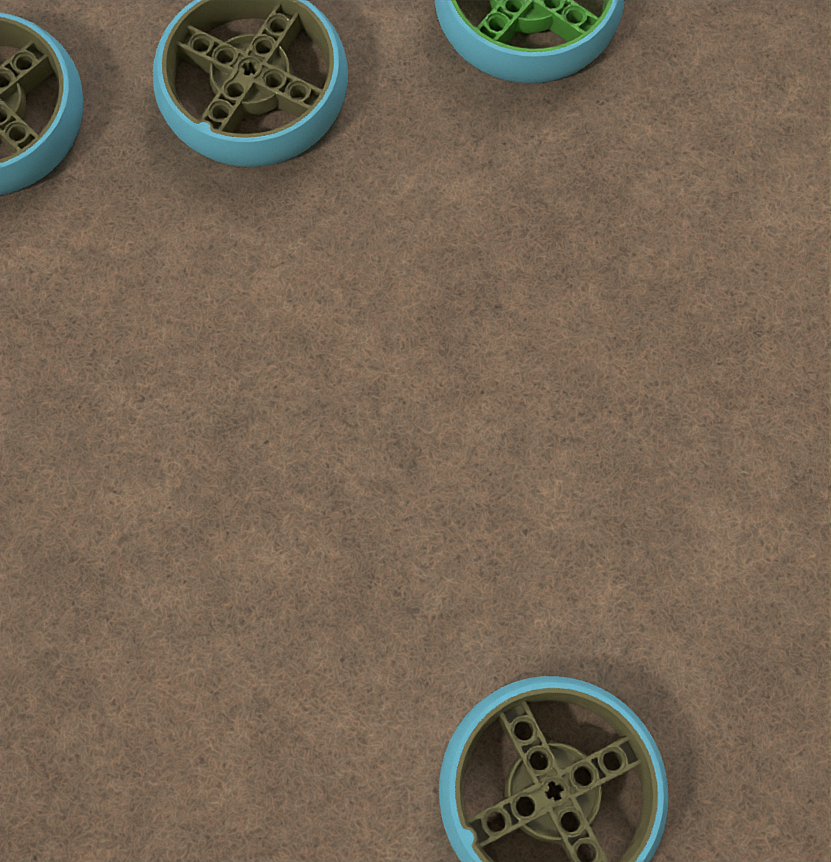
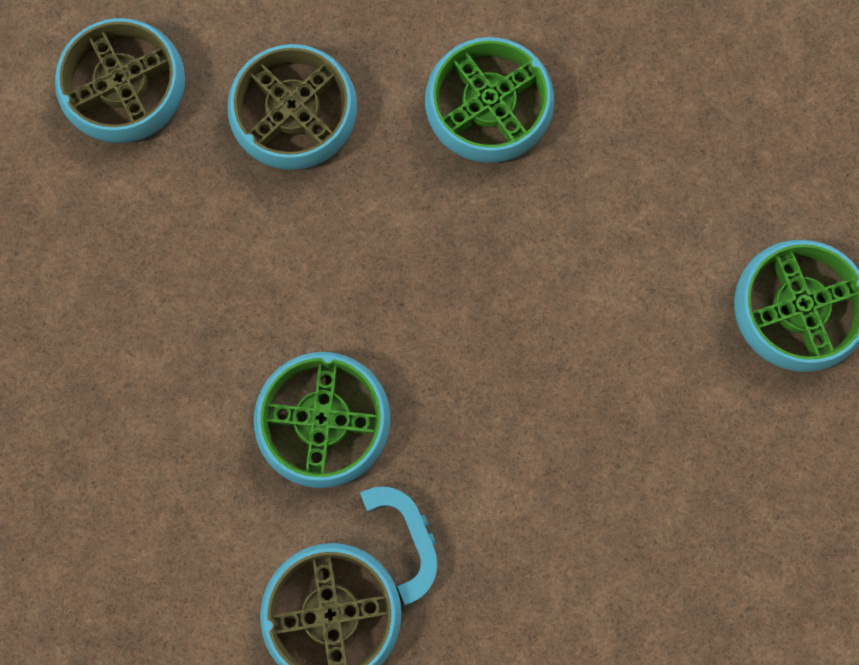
camera: 20 degrees right, 5 degrees up
(424, 417) = (268, 413): none -> bright green wheel
(650, 635) = (386, 496): none -> medium azure arch

